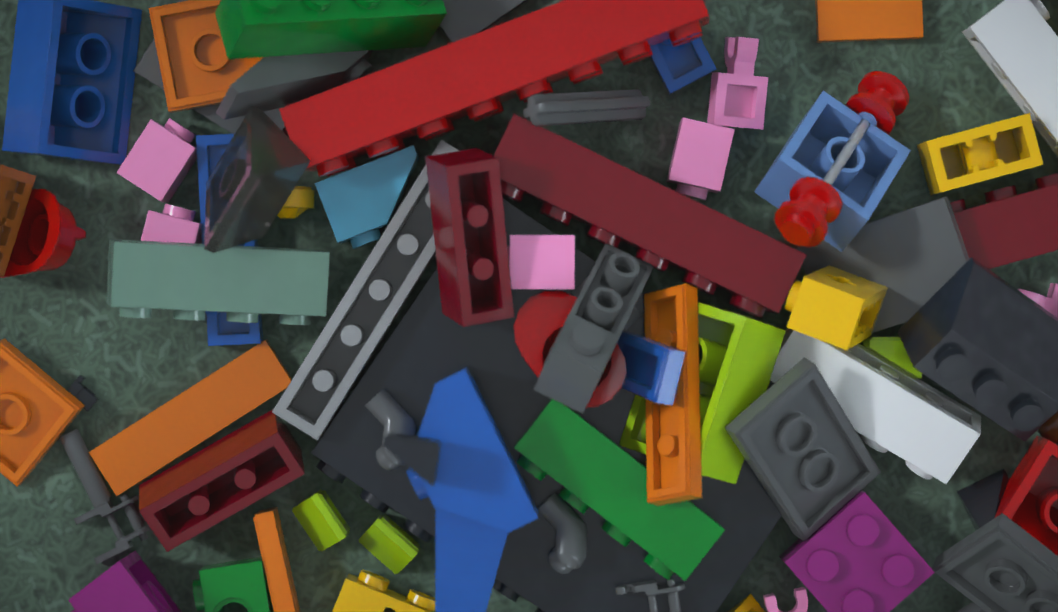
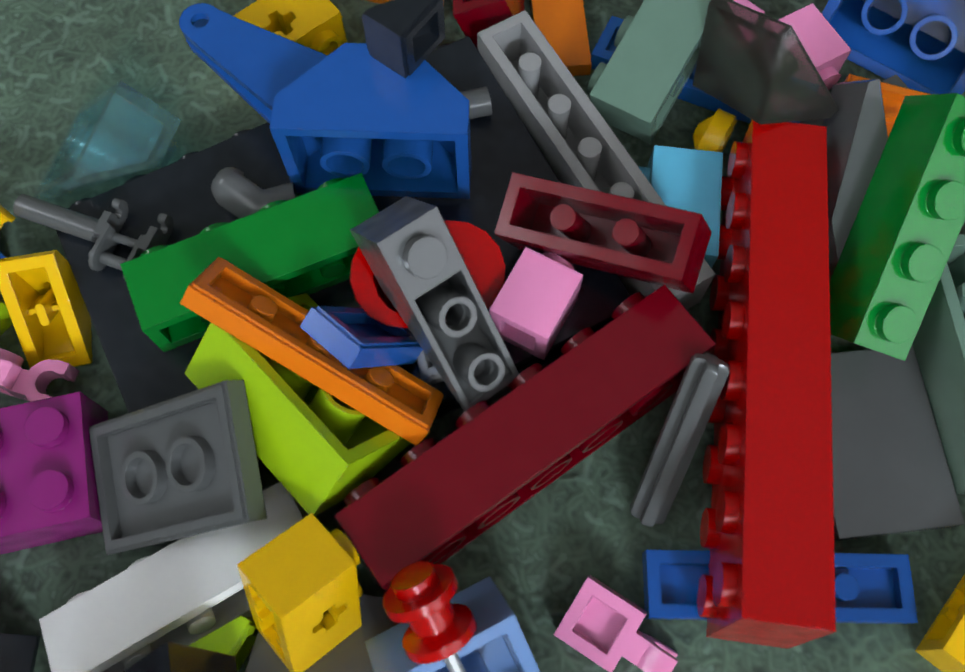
camera: 120 degrees right, 20 degrees down
(699, 158) = (557, 543): bright pink brick -> none

